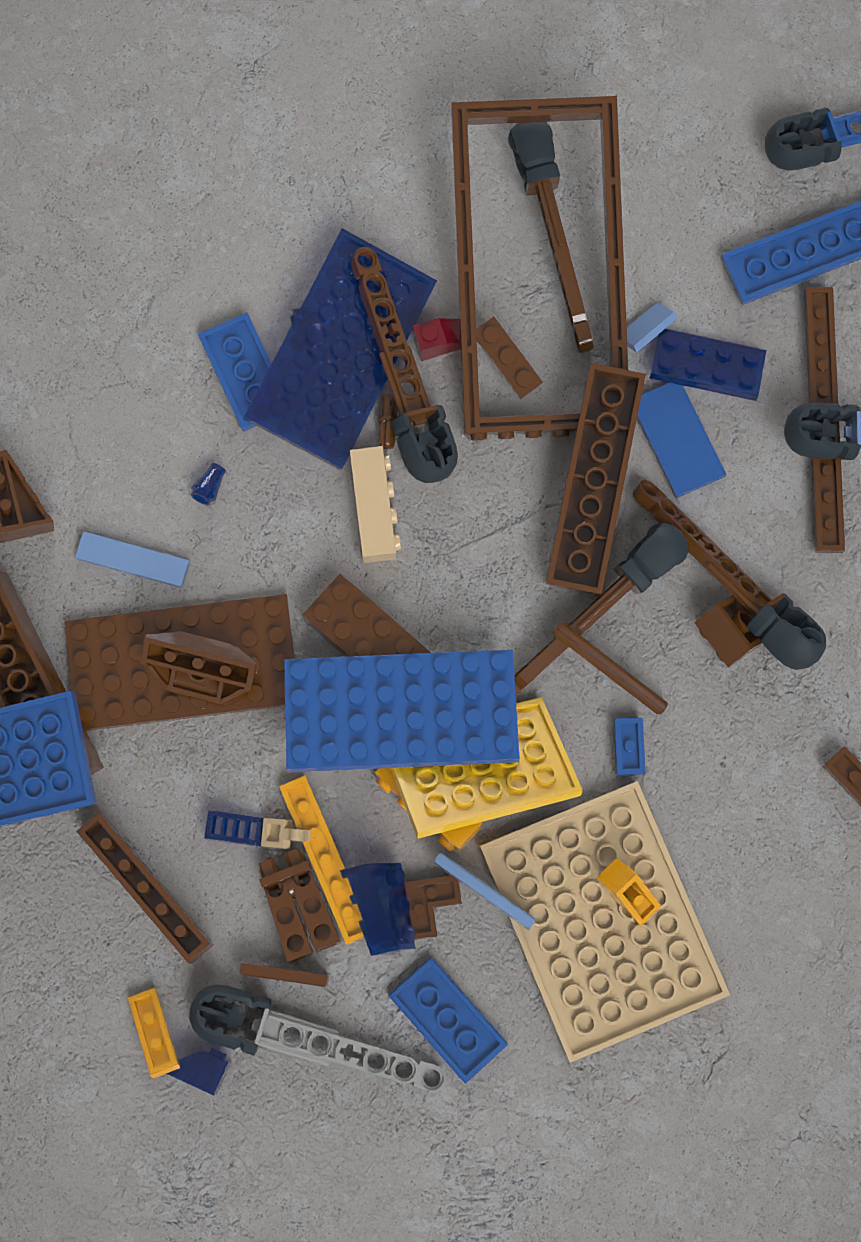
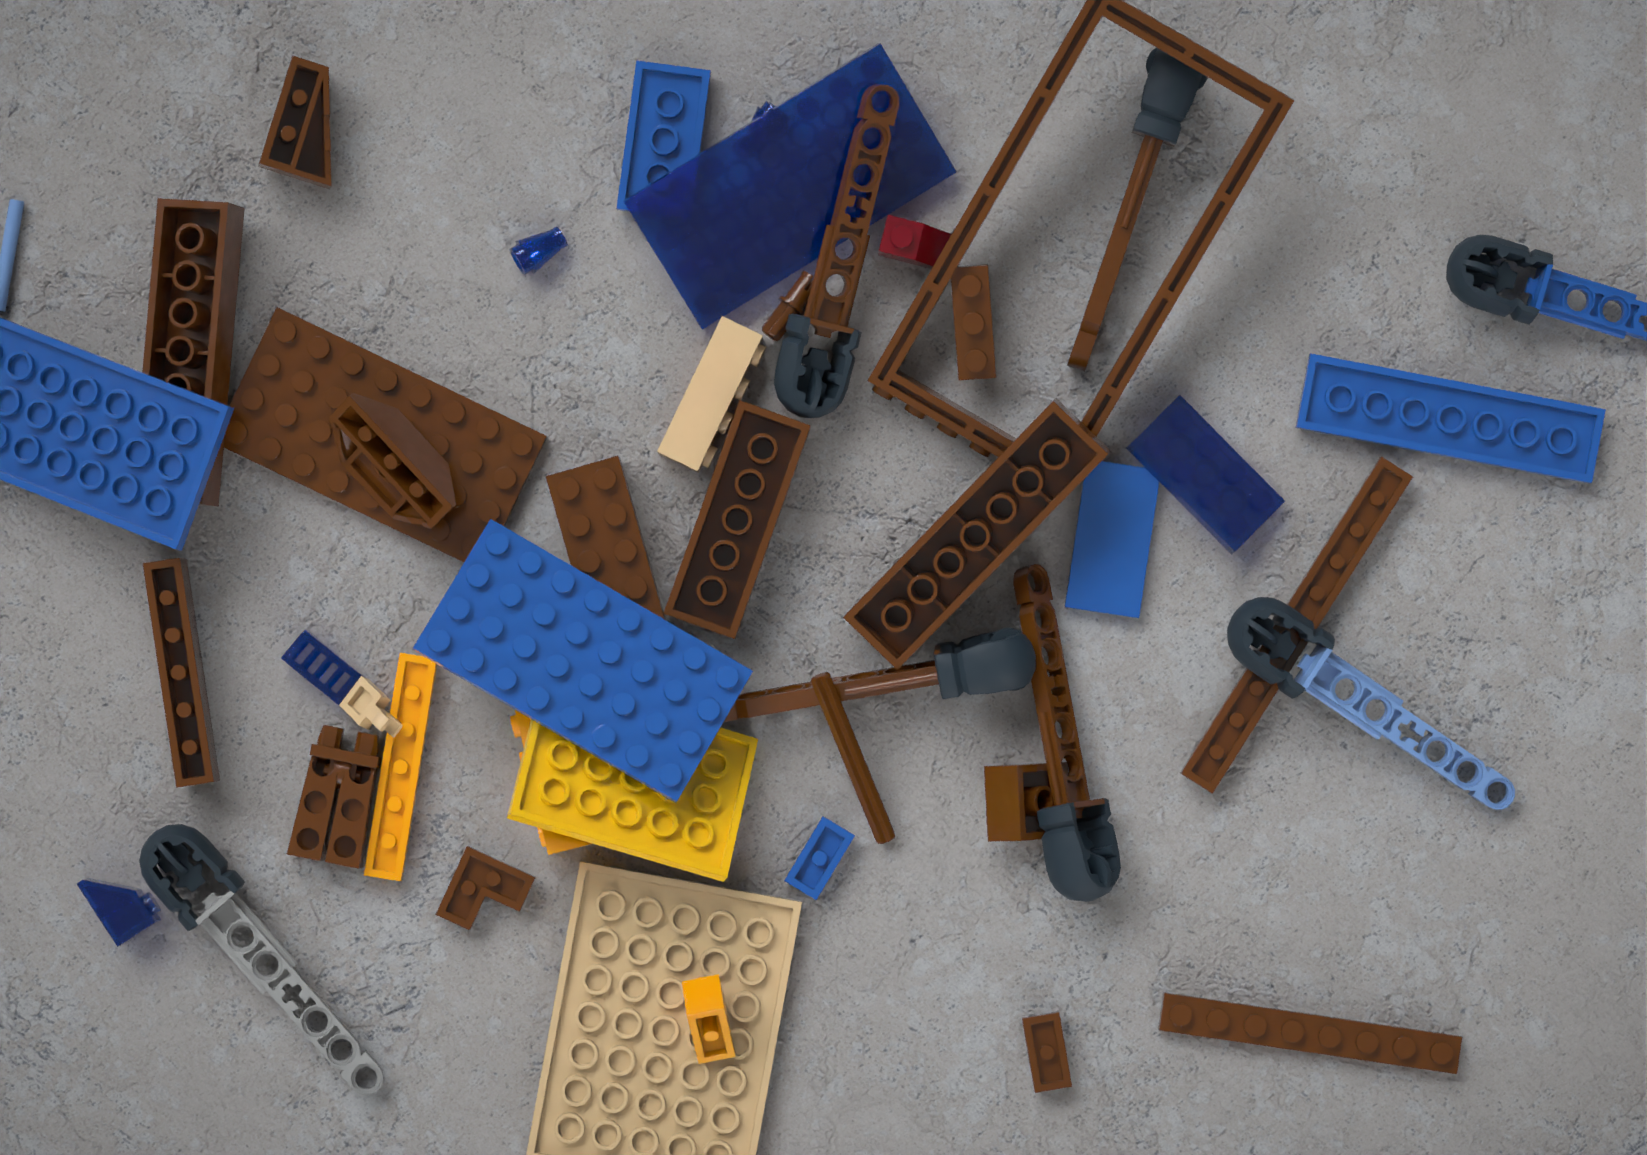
camera: 35 degrees right, 10 degrees up
(132, 559) = (397, 282): medium blue tile -> none
(153, 1033) = (94, 836): light orange tile -> none
(284, 975) = (276, 864): reddish brown tile -> none
(383, 906) = (428, 861): clear blue wedge -> none
(440, 567) = (737, 519): none -> reddish brown brick
(448, 1020) = (424, 1026): blue tile -> none
(484, 891) = (550, 917): medium blue tile -> none
(649, 326) = (1165, 385): medium blue tile -> none

